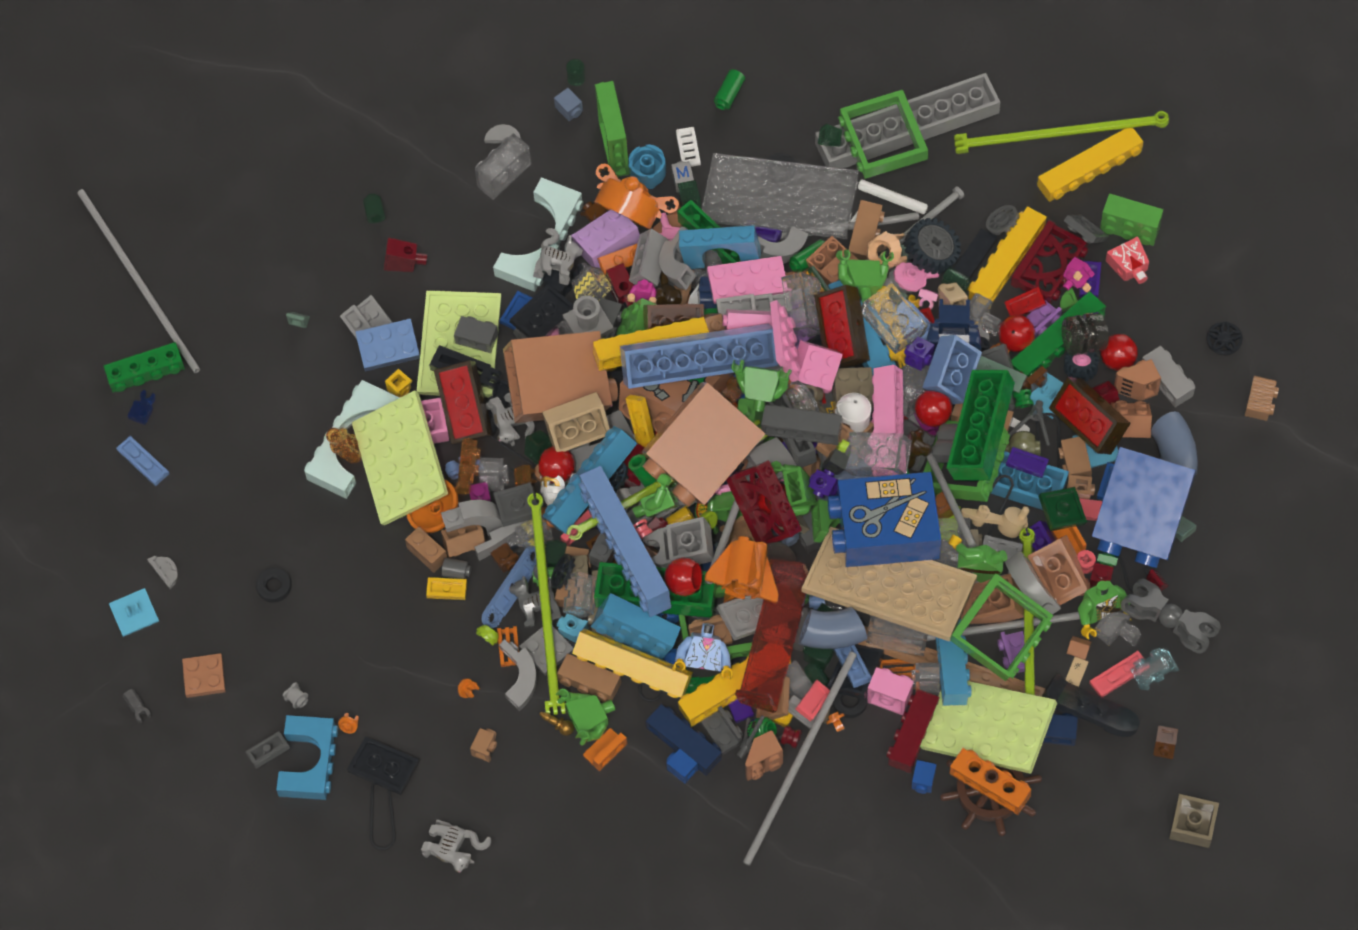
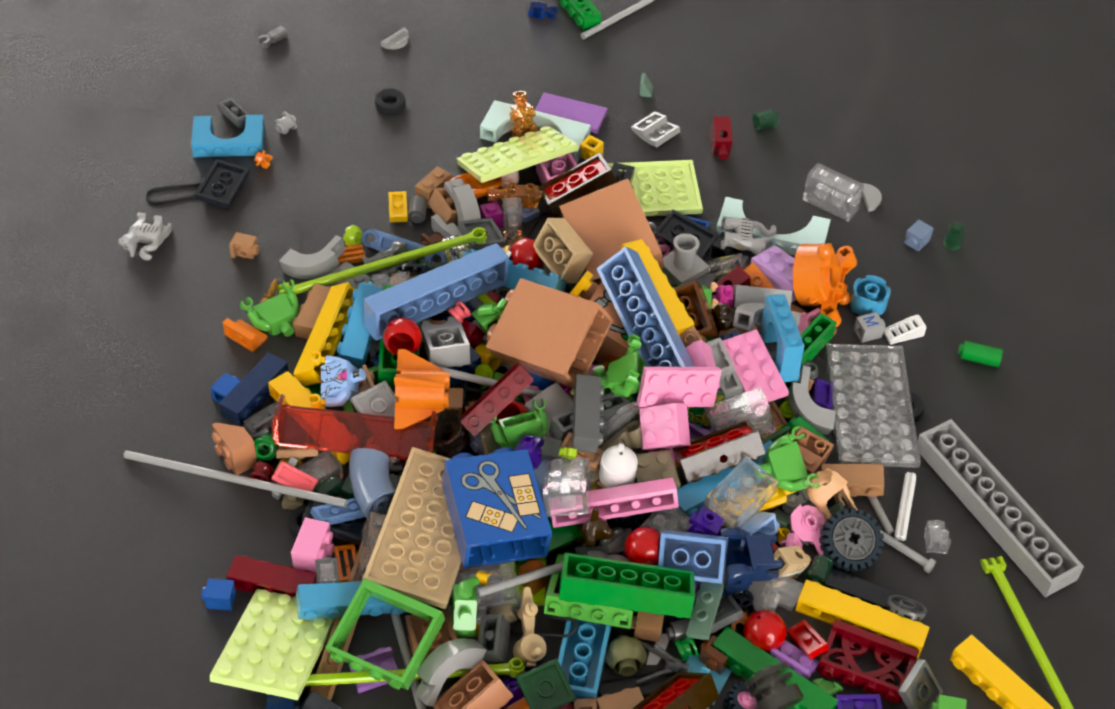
camera: 75 degrees right, 15 degrees down
(133, 612) = (357, 28): medium azure piece -> none
(142, 461) = (494, 16): medium blue tile -> none
(203, 675) = (303, 71): nougat plate -> none
(324, 401) = (572, 110): none -> medium lavender tile
(387, 345) = (629, 137): medium blue brick -> none
(466, 688) = (300, 229): orange plate -> none
(476, 334) = (652, 191): dark grey brick -> none
(612, 128) = (917, 225): bright green window -> none
(689, 191) = (849, 333): clear green brick -> none
(830, 136) = (950, 429): clear green slope -> none
(835, 719) = (279, 512): orange plate -> none
(894, 162) = (981, 499): bright green window -> none
(930, 179) = (936, 537): none -> clear brick
(991, 784) = (198, 651): brick -> none
(1027, 462) = (598, 648): dark purple tile -> none
(1077, 275) = (854, 684): dark pink piece -> none

